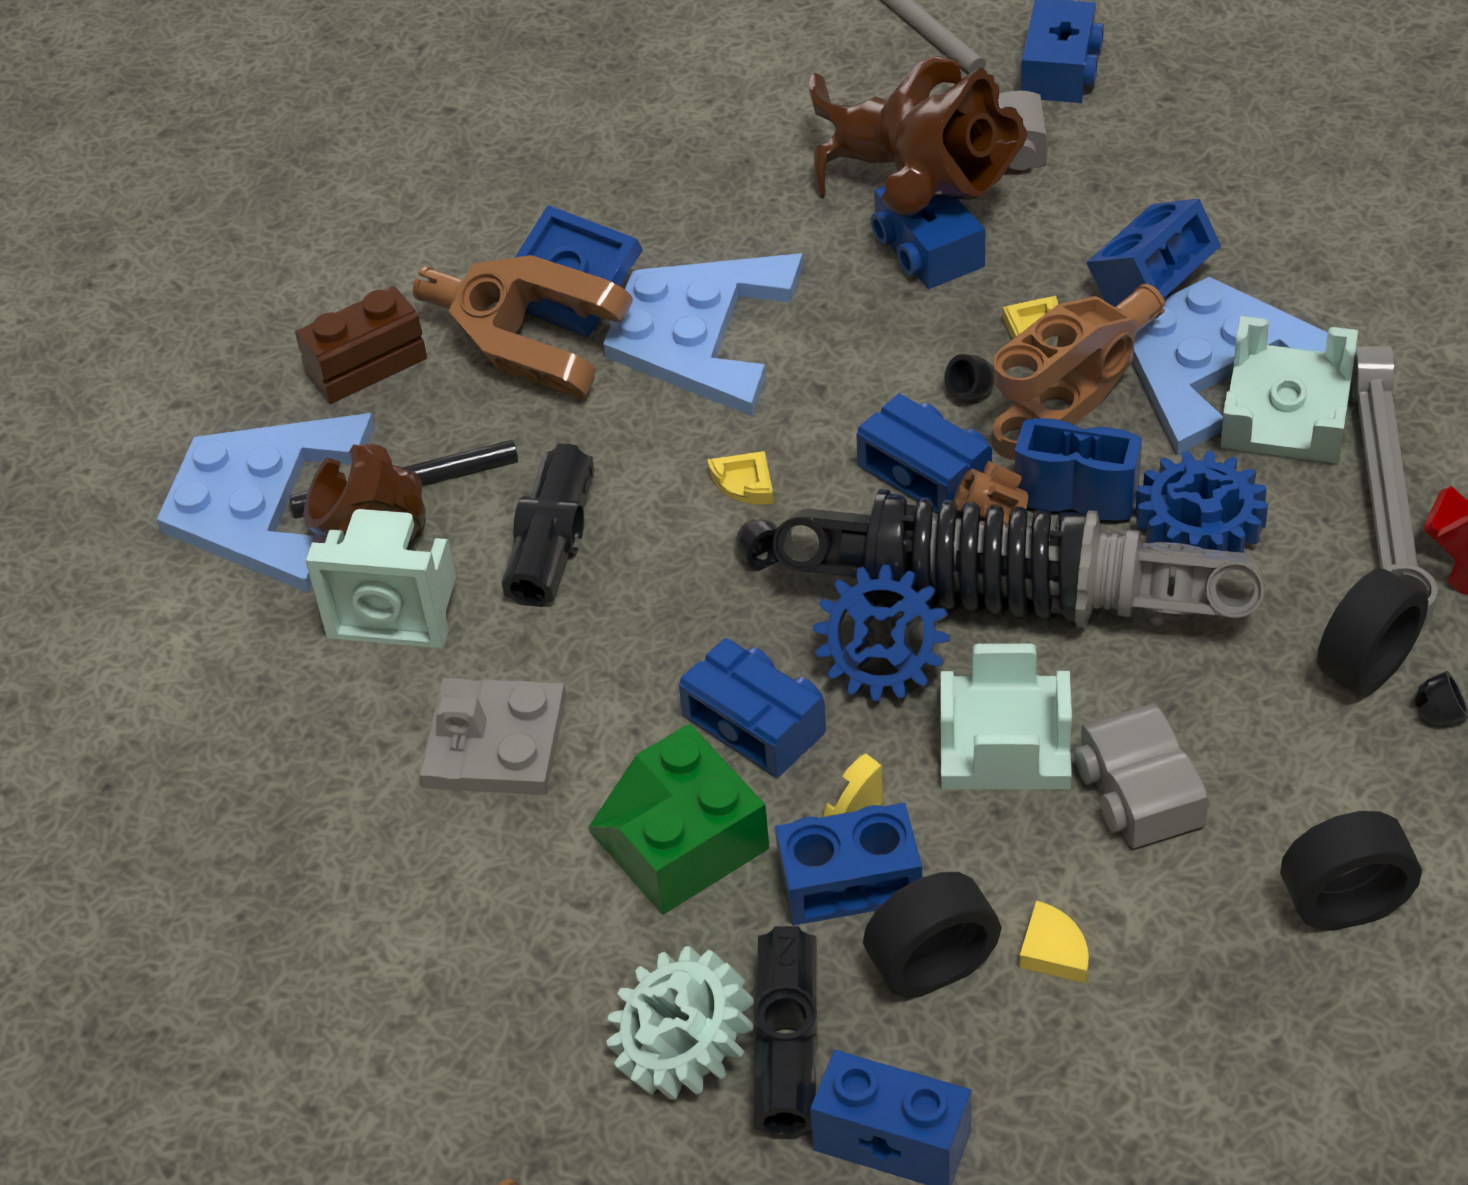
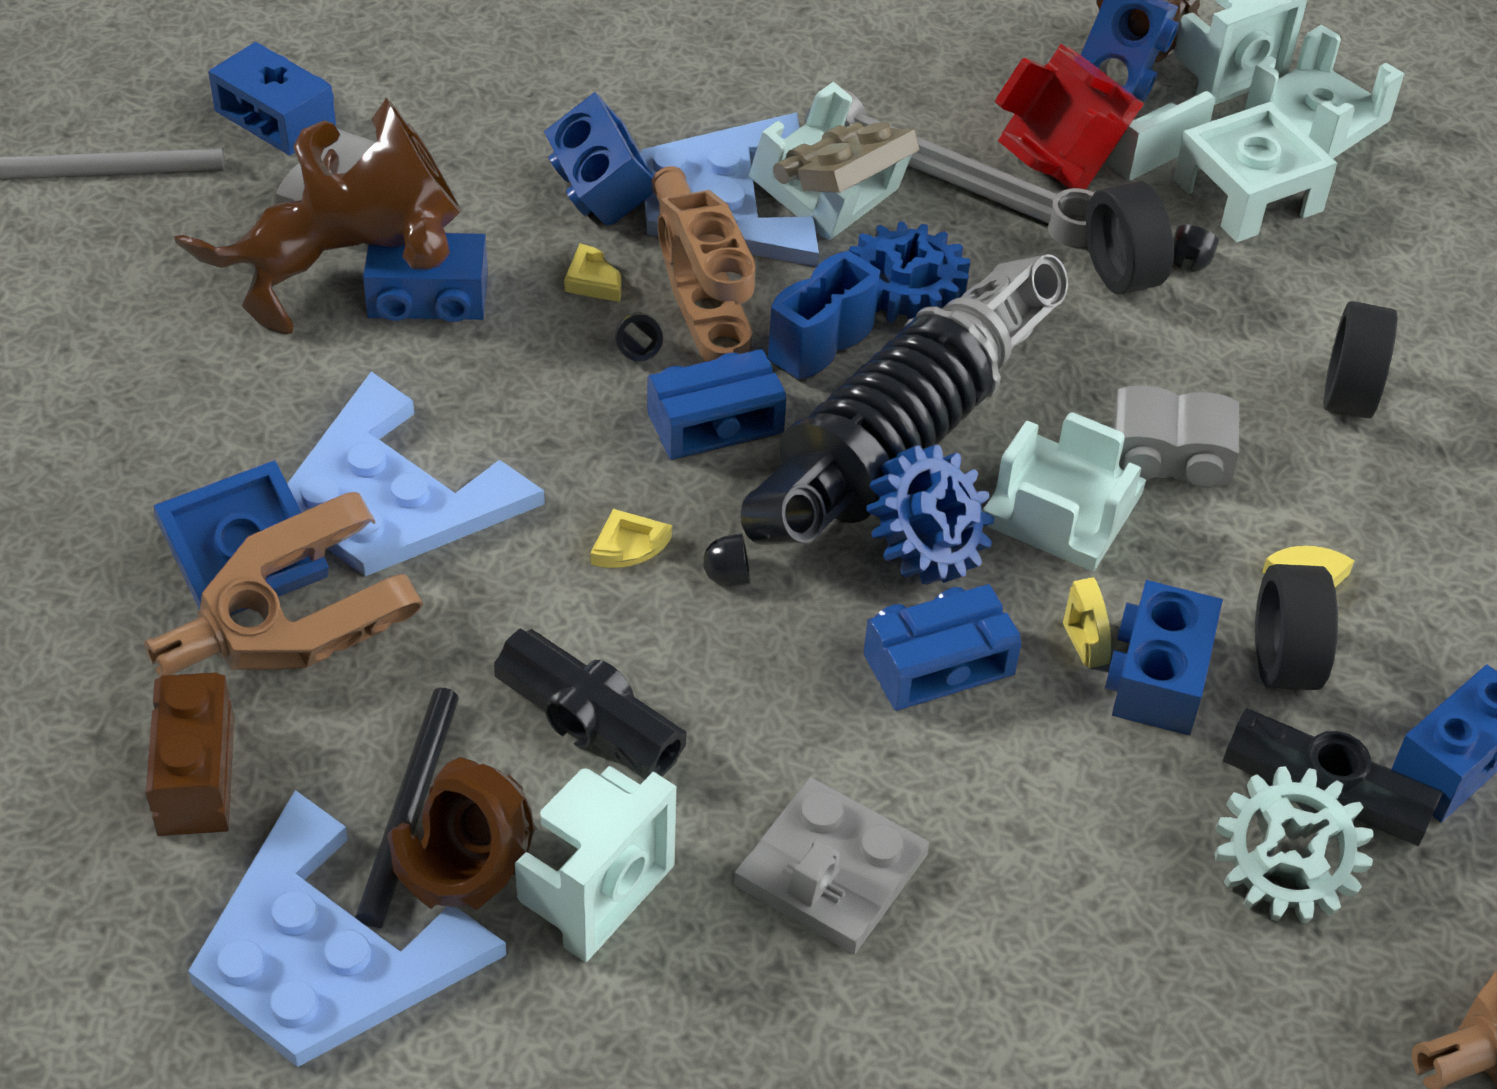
camera: 70 degrees left, 0 degrees up
(680, 819) = (1050, 753): green slope -> none
(993, 486) = (809, 370): medium nougat gear -> none
(1269, 385) = (846, 156): none -> dark tan plate

